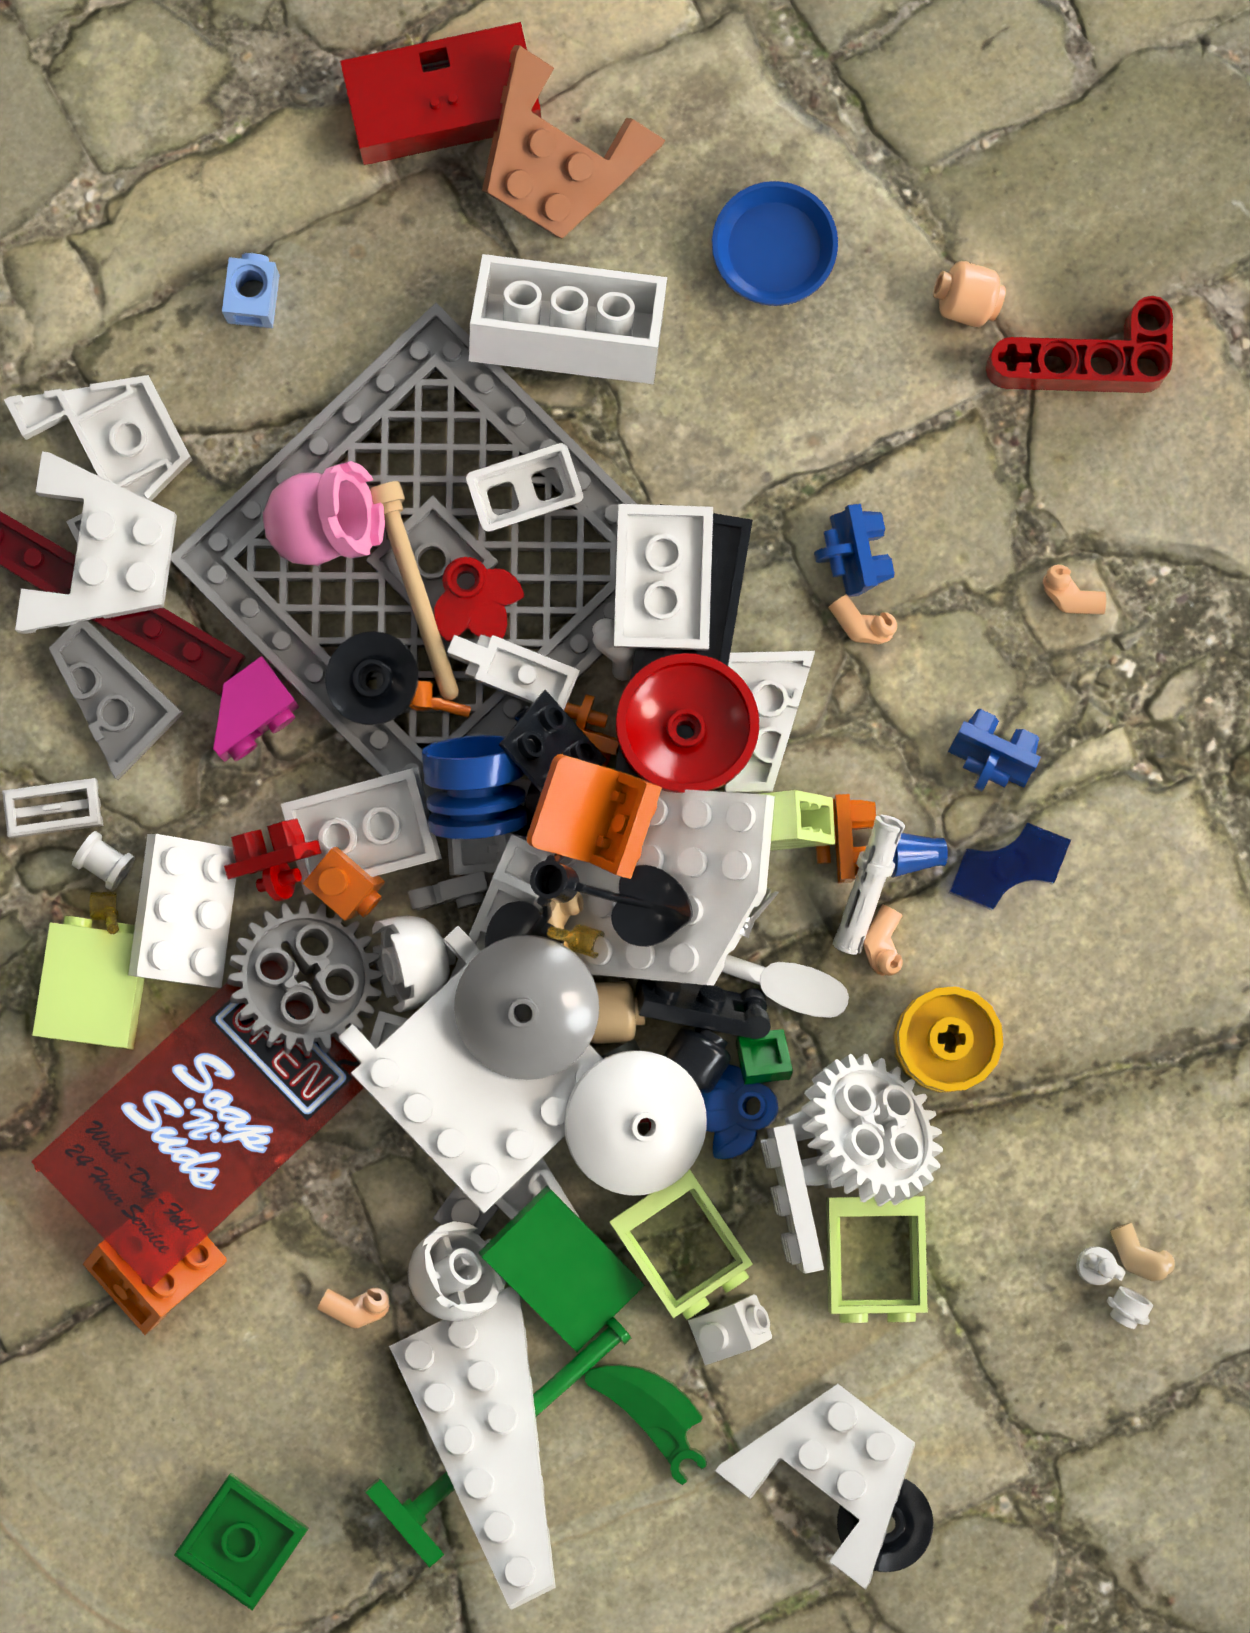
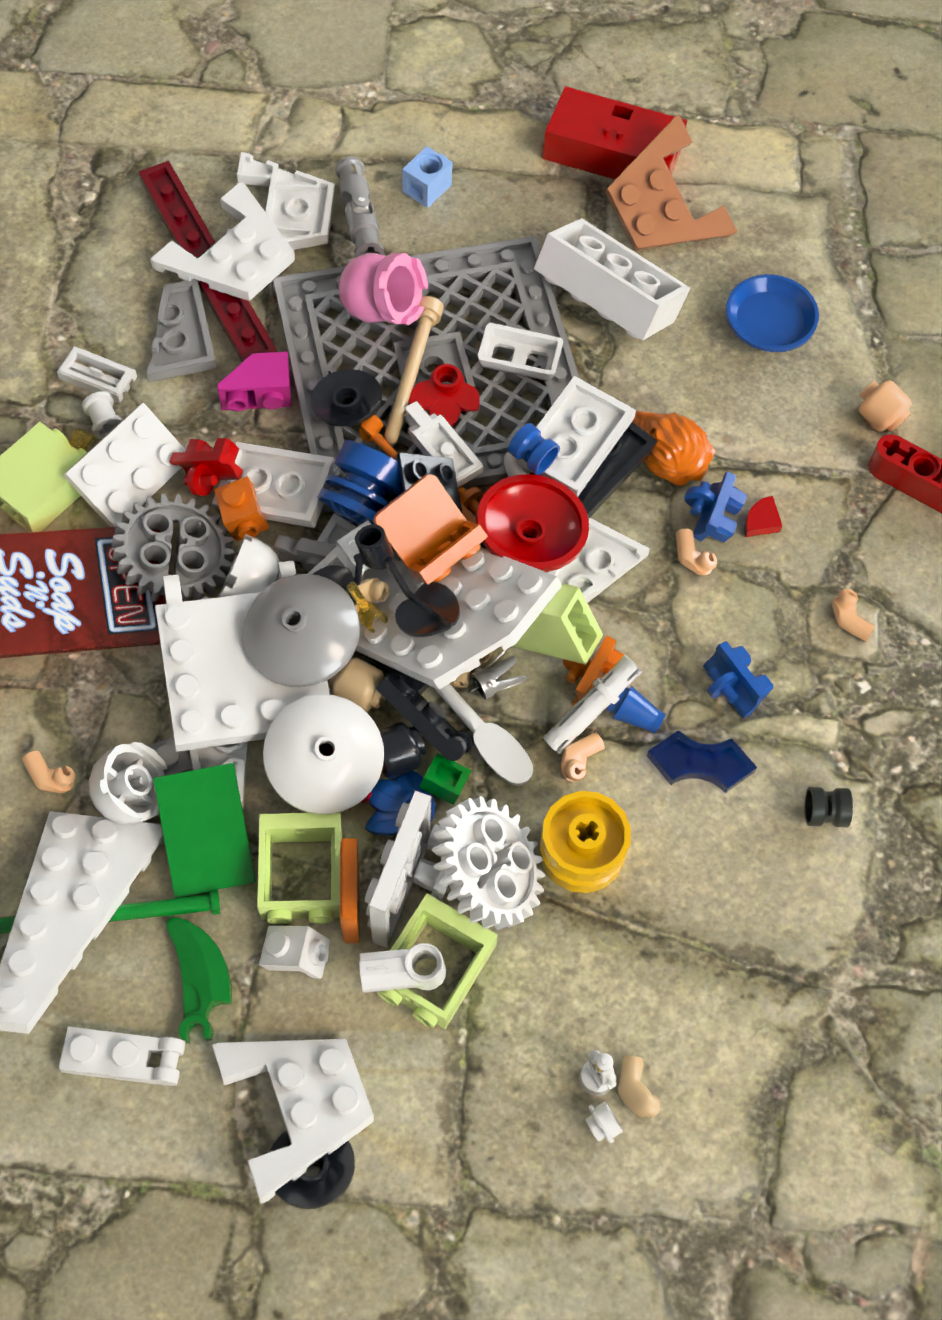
camera: 30 degrees right, 20 degrees down
(188, 380) = (359, 212): none -> light grey piece
(633, 1535) = (120, 1056): none -> white plate
(636, 635) = (533, 448): none -> blue wheel
(753, 1244) = (350, 890): none -> orange tile
(767, 491) = (680, 449): none -> orange hair
(855, 1300) = (397, 969): none -> white piece
(911, 526) = (763, 518): none -> red tile
(1168, 842) = (828, 807): none -> pearl dark grey wheel

